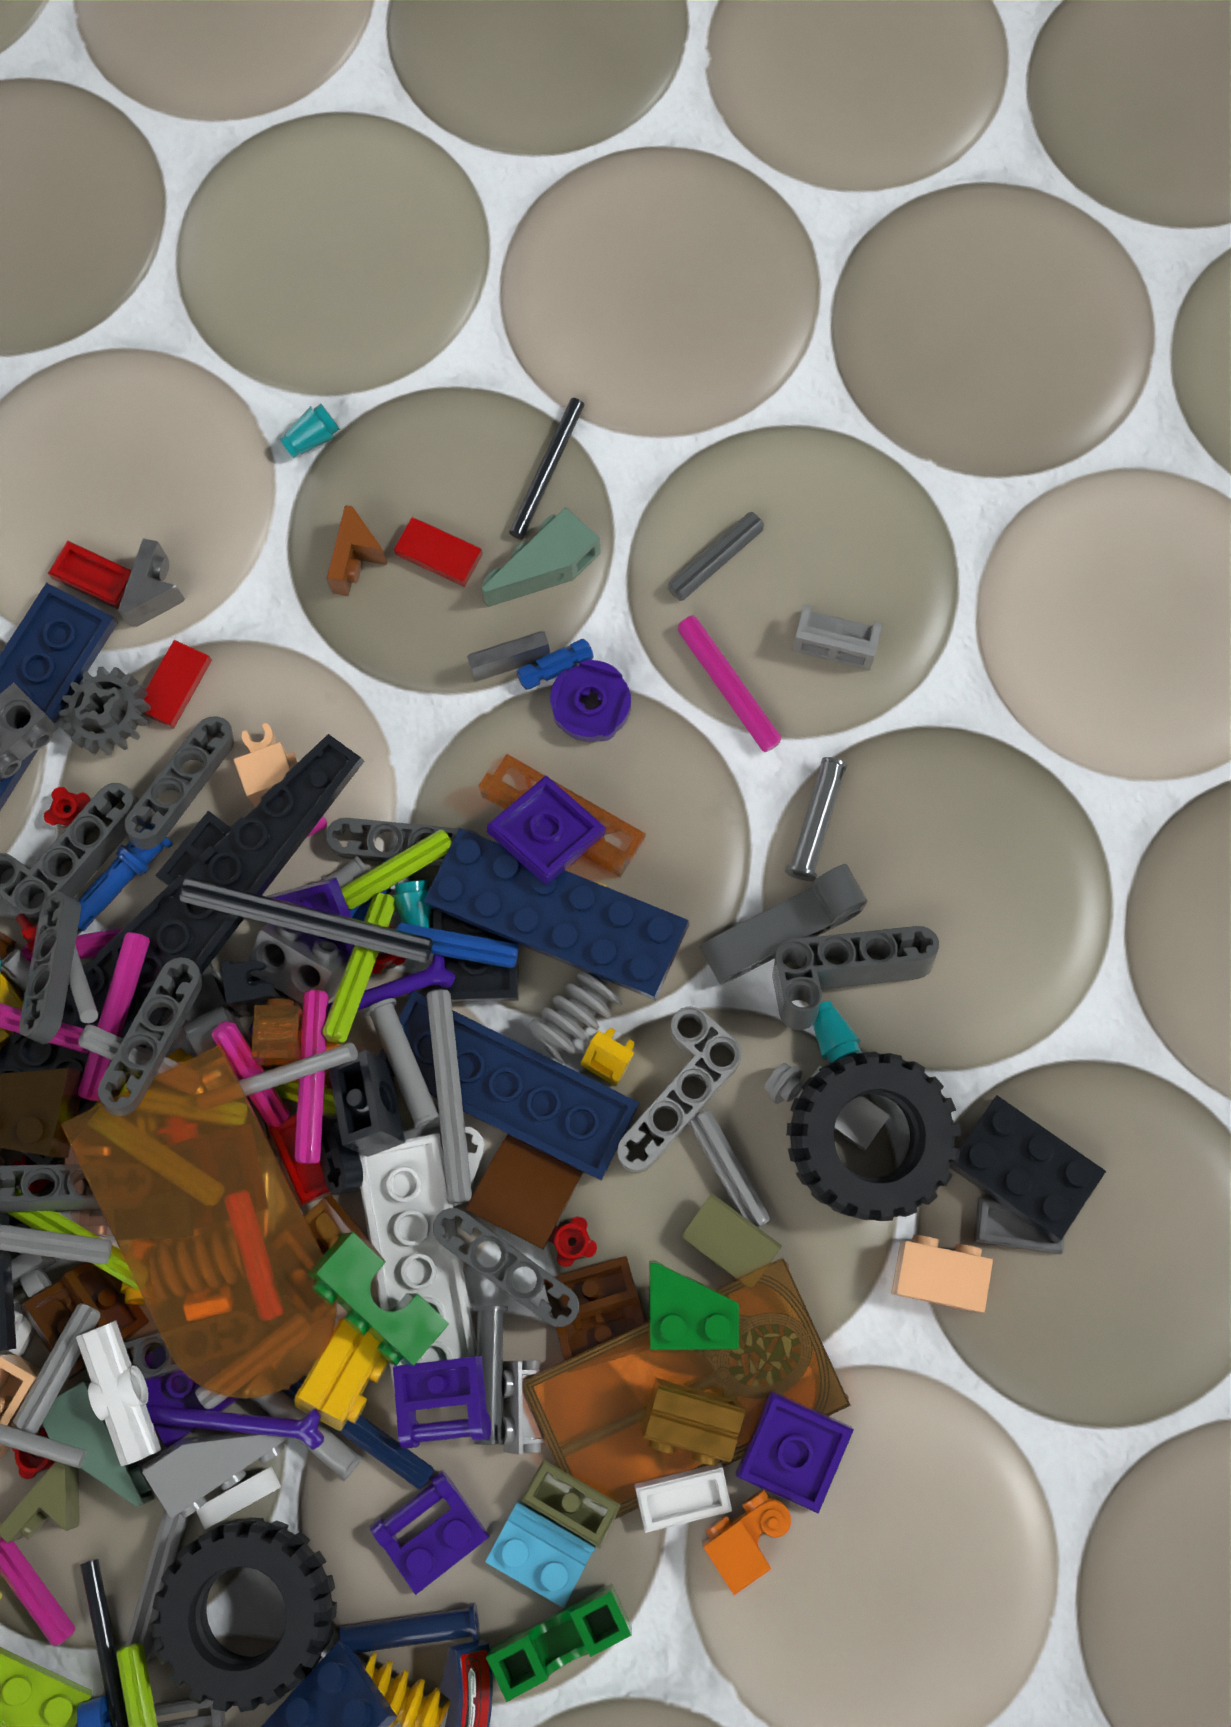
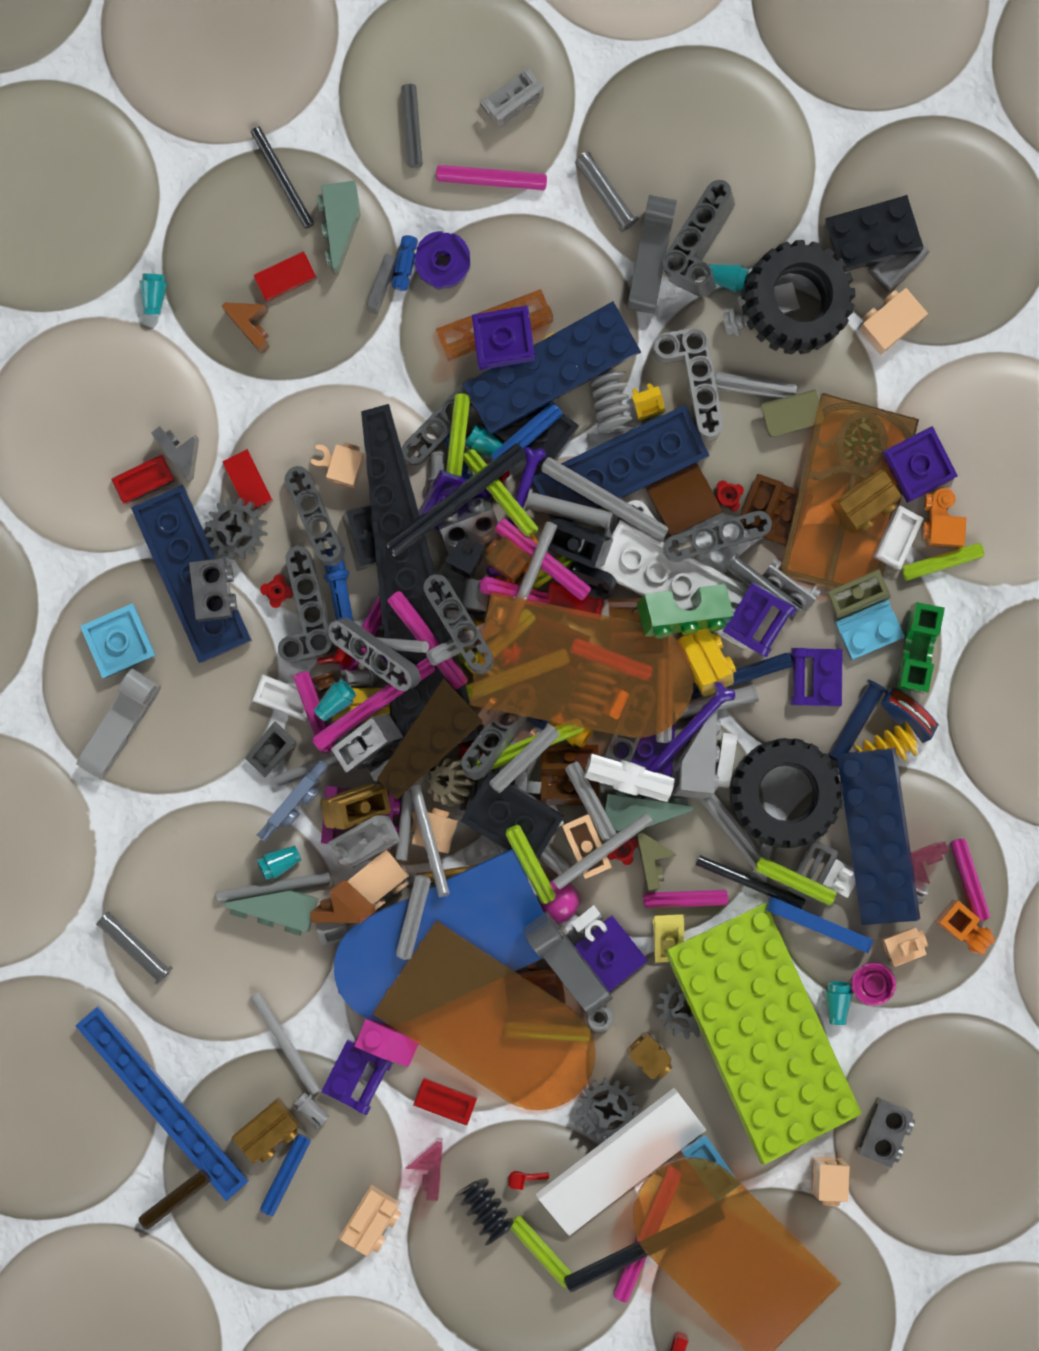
camera: 55 degrees left, 10 degrees up
(688, 1313) = (813, 461): green wing -> none
(697, 1581) = (942, 561): none -> lime axle

